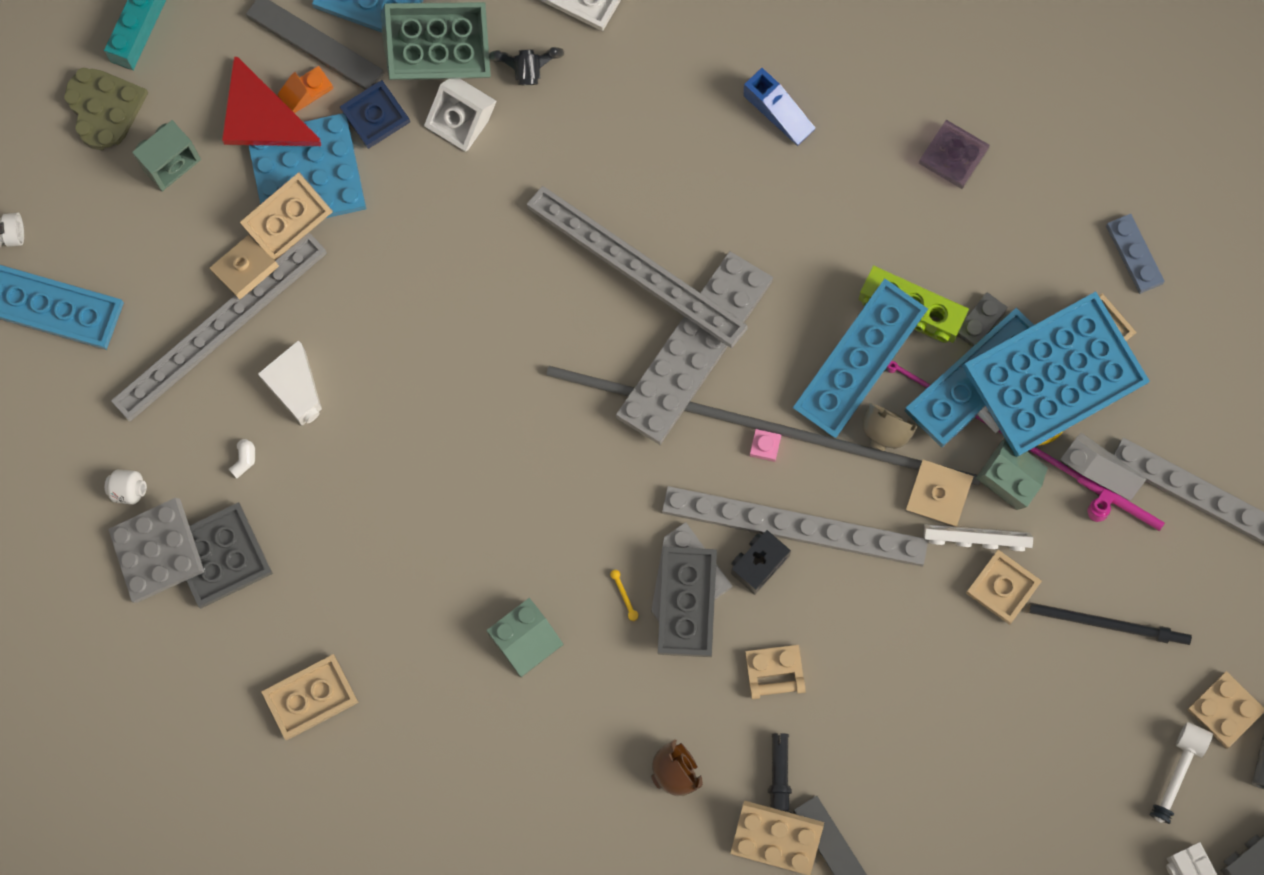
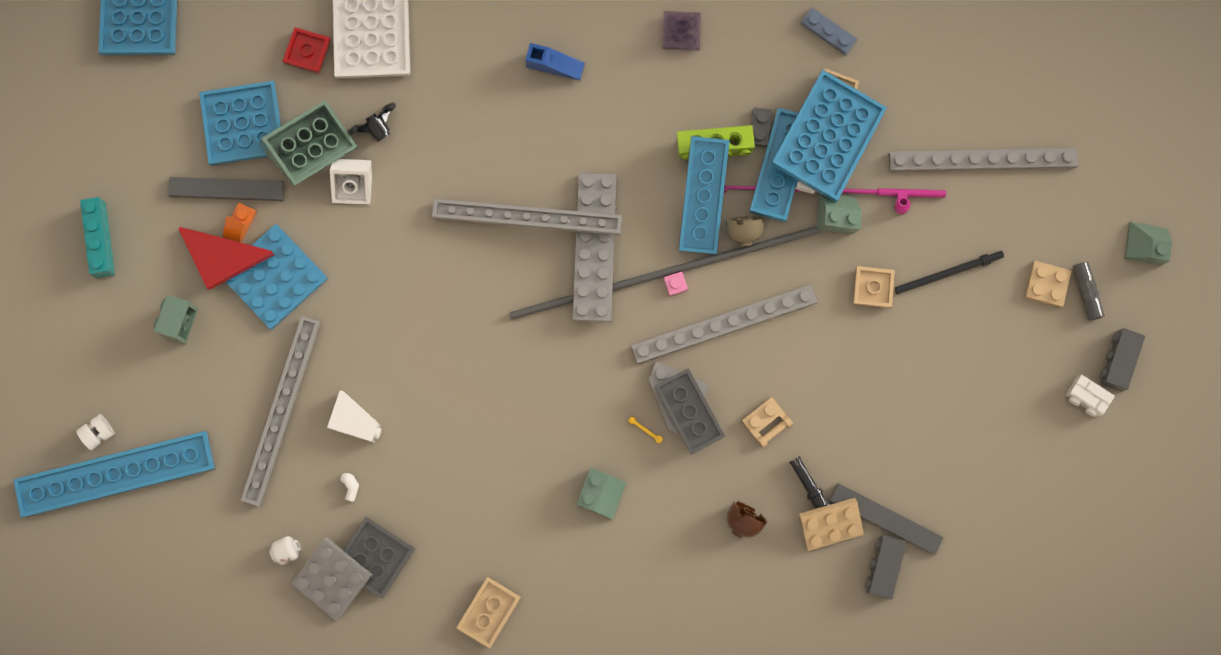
camera: 40 degrees left, 5 degrees up
(103, 106) = (110, 309): olive plate -> none
(244, 267) = (273, 363): tan plate -> none
(286, 216) = (281, 314): tan plate -> none
(375, 114) = (296, 213): dark blue plate -> none
(774, 555) = (718, 370): black brick -> none
(939, 493) = (800, 251): tan plate -> none
(987, 537) = (845, 262): white plate -> none
(1102, 467) = (888, 177): light grey slope -> none
(1192, 741) = (1041, 315): white piece -> none

